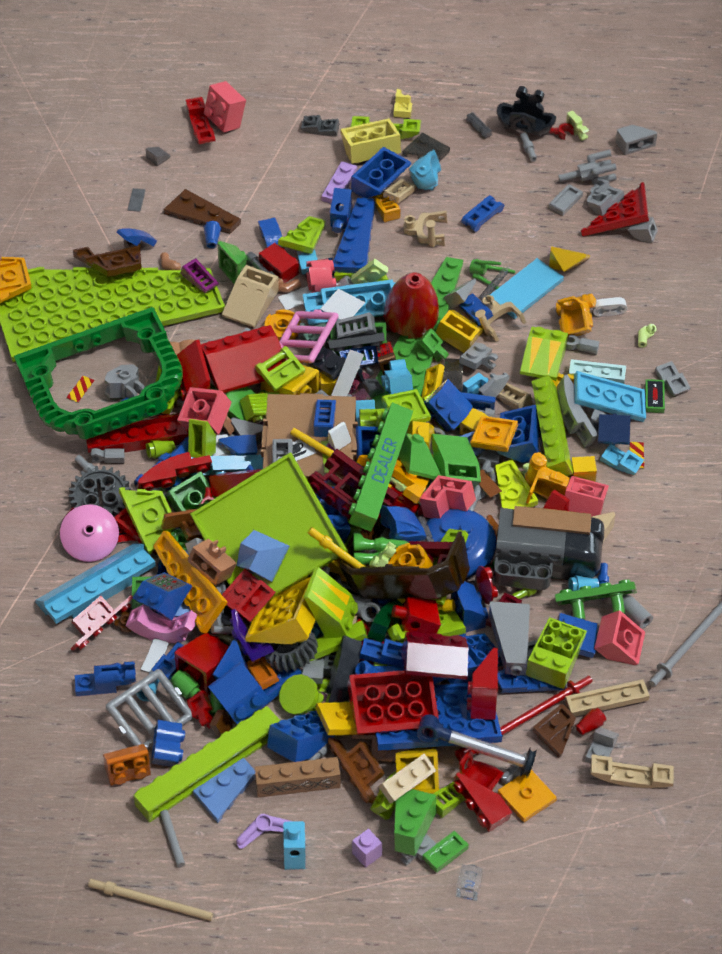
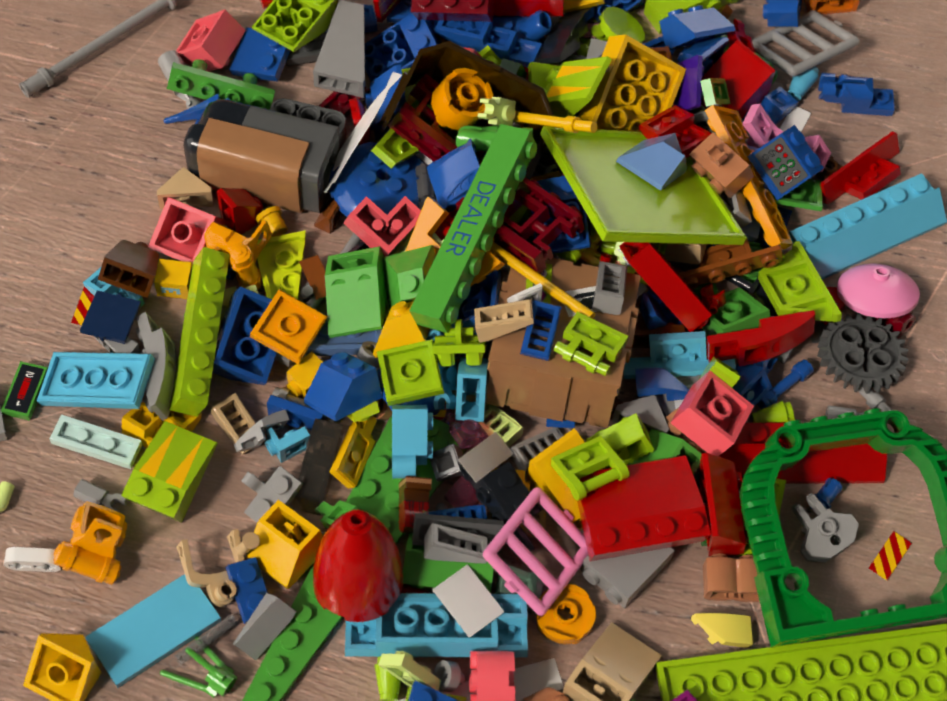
camera: 175 degrees left, 10 degrees up
(184, 330) = (726, 628): none -> light yellow slope
(220, 624) = (715, 92): none -> plate
(290, 416) = (595, 337): none -> lime plate
(361, 409) = (494, 320): none -> tan slope
(480, 551) = (360, 129): none -> white sticker
(599, 578) = (192, 113): none -> blue piece
(613, 465) = (130, 267): none -> reddish brown torso

